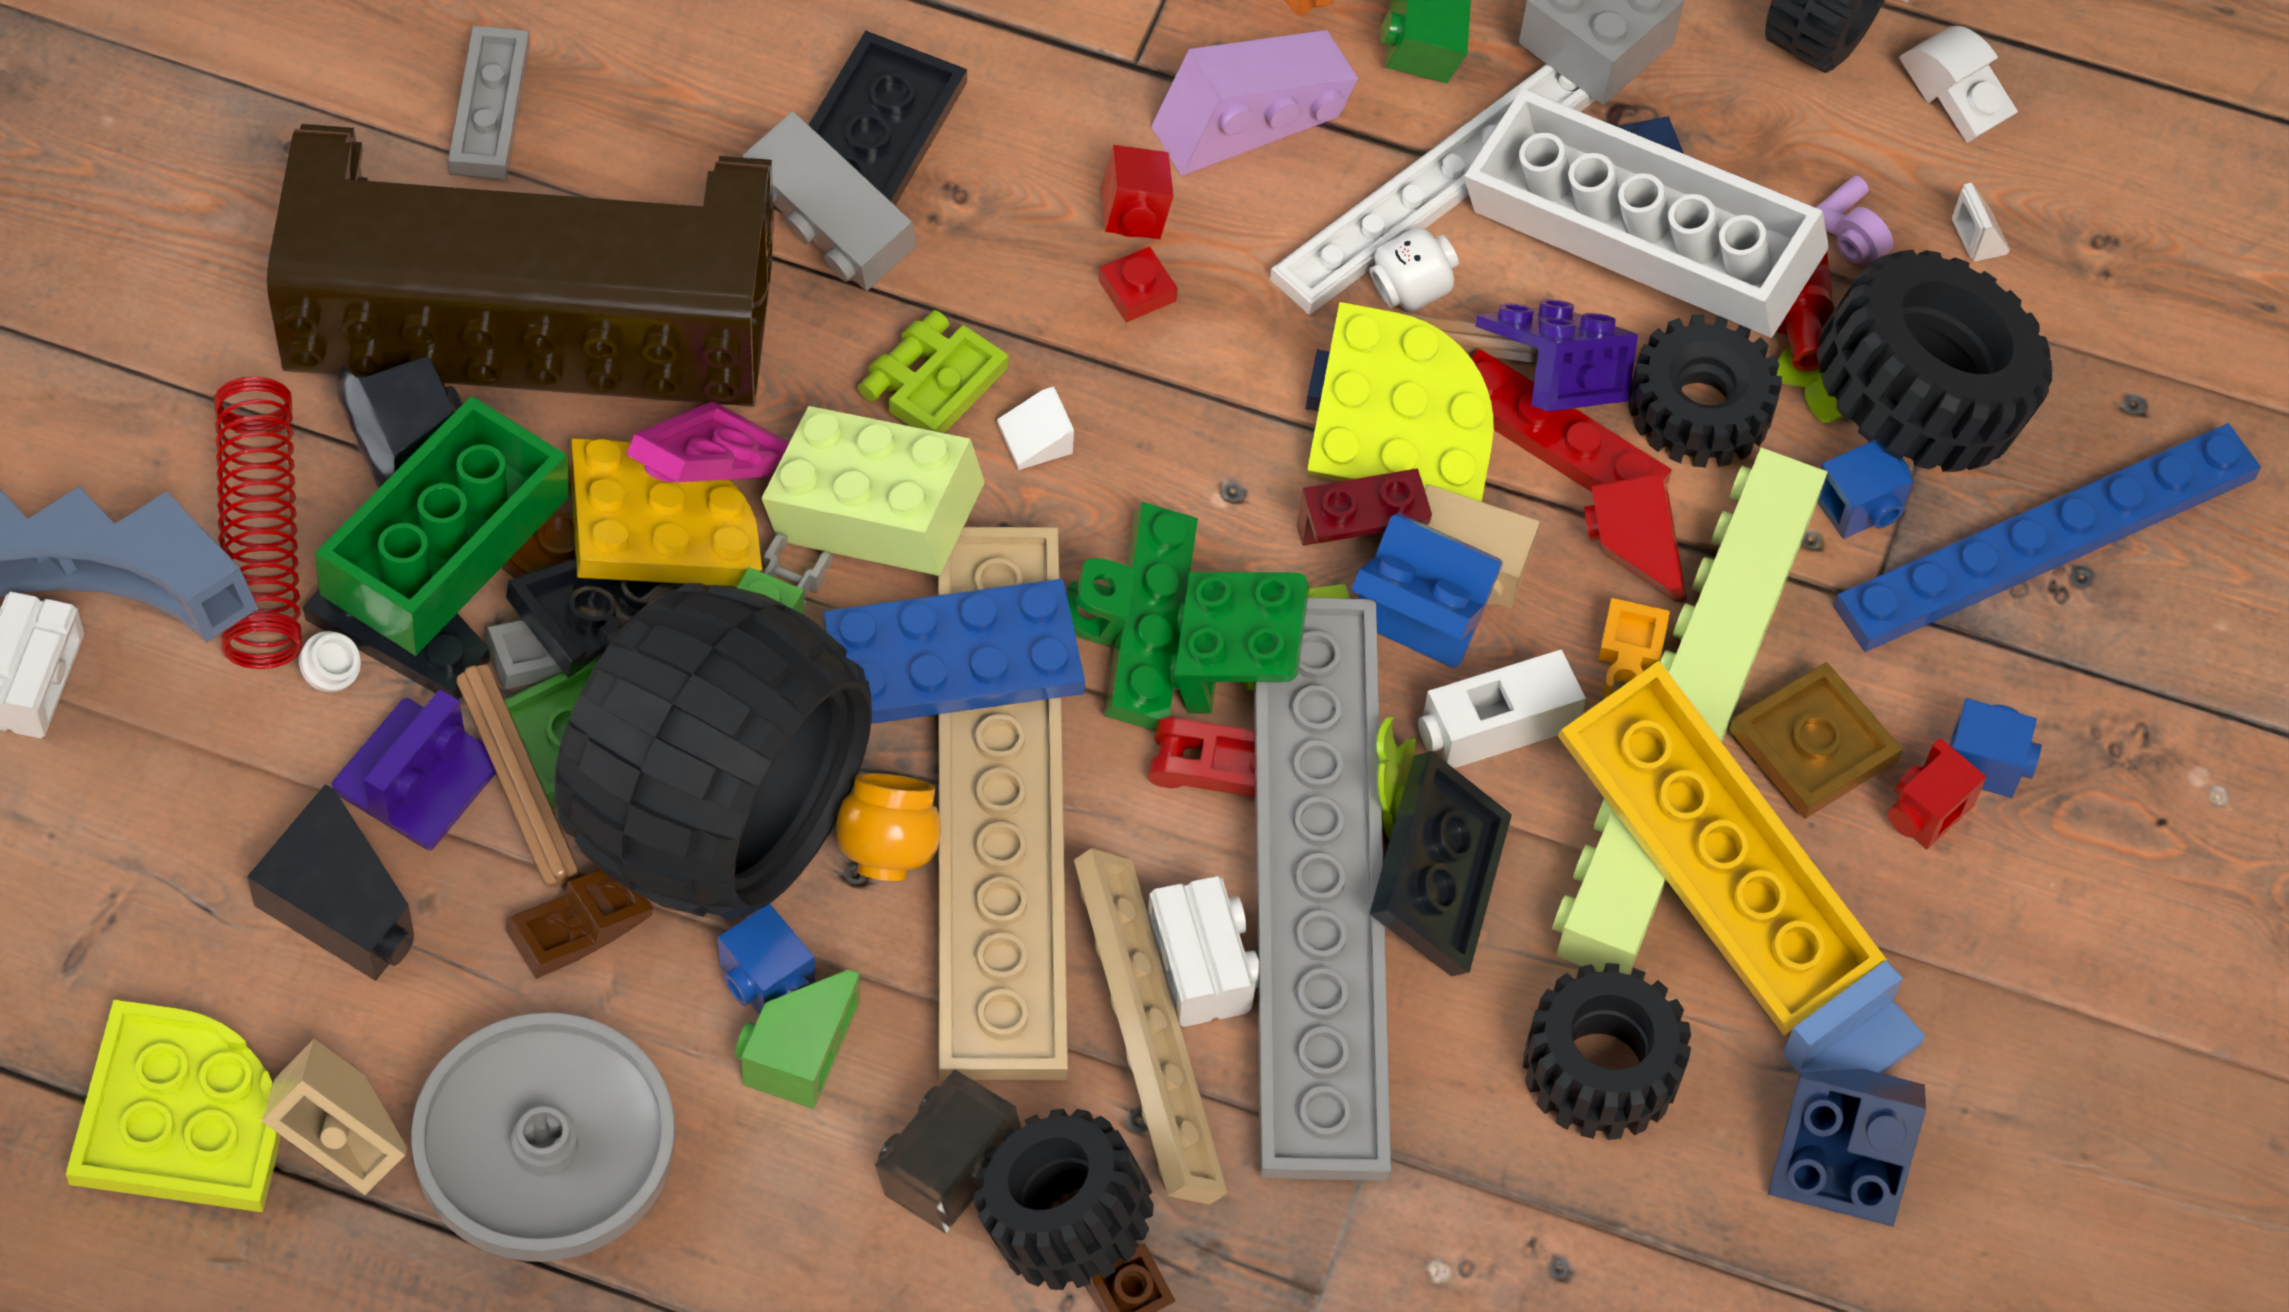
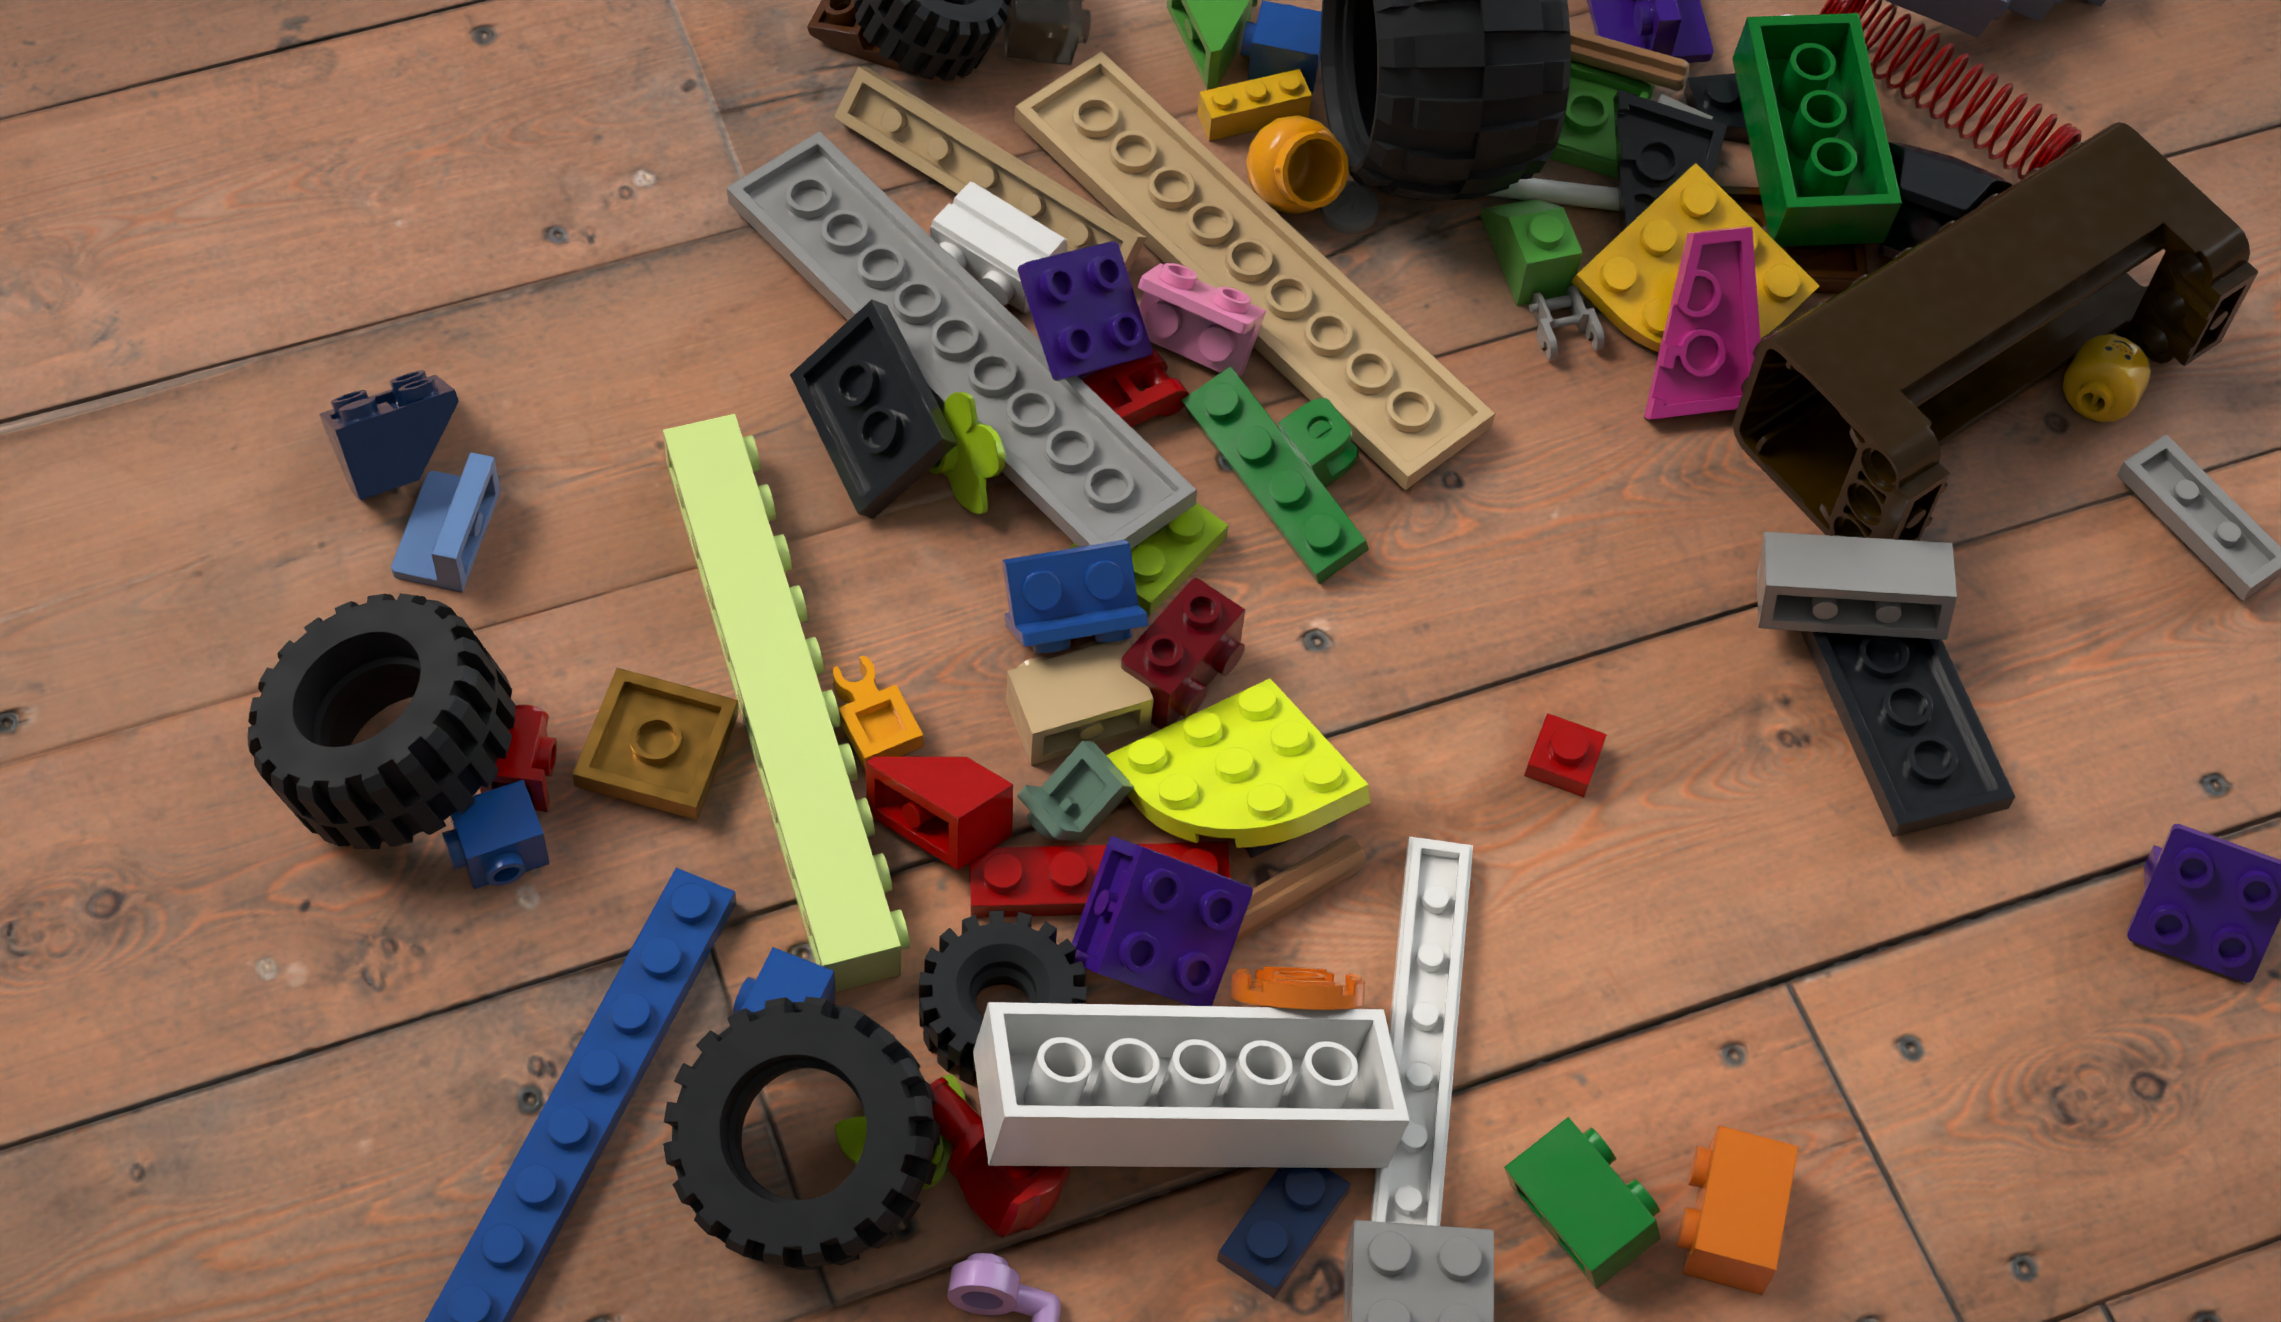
camera: 140 degrees right, 0 degrees up
(848, 938) = (1253, 104): none -> yellow piece
(874, 490) = (1564, 387): yellowish green brick -> none
(945, 384) = (1615, 546): lime plate -> none
(963, 649) = (1379, 316): blue plate -> none
(1037, 430) = (1508, 565): white slope -> none
(1102, 754) = (1198, 319): none -> bright pink bracket
(1136, 192) = (1641, 805): red brick -> none
(1214, 798) = (1084, 310): none -> dark purple bracket
(1238, 632) = (1186, 460): green bracket -> none
(1250, 96) = (1641, 986): lavender wedge -> none
(1414, 269) = (1352, 925): white head -> none
(1501, 709) = (932, 581): white brick -> none
(1503, 239) = (1297, 988): none -> orange tile
(1533, 484) = (1076, 795): none -> sand green bracket
(1615, 1007) = (625, 325): black tyre -> none
(1721, 847) = (657, 552): yellow arch -> none
(2114, 824) = (415, 767): none -> black tyre

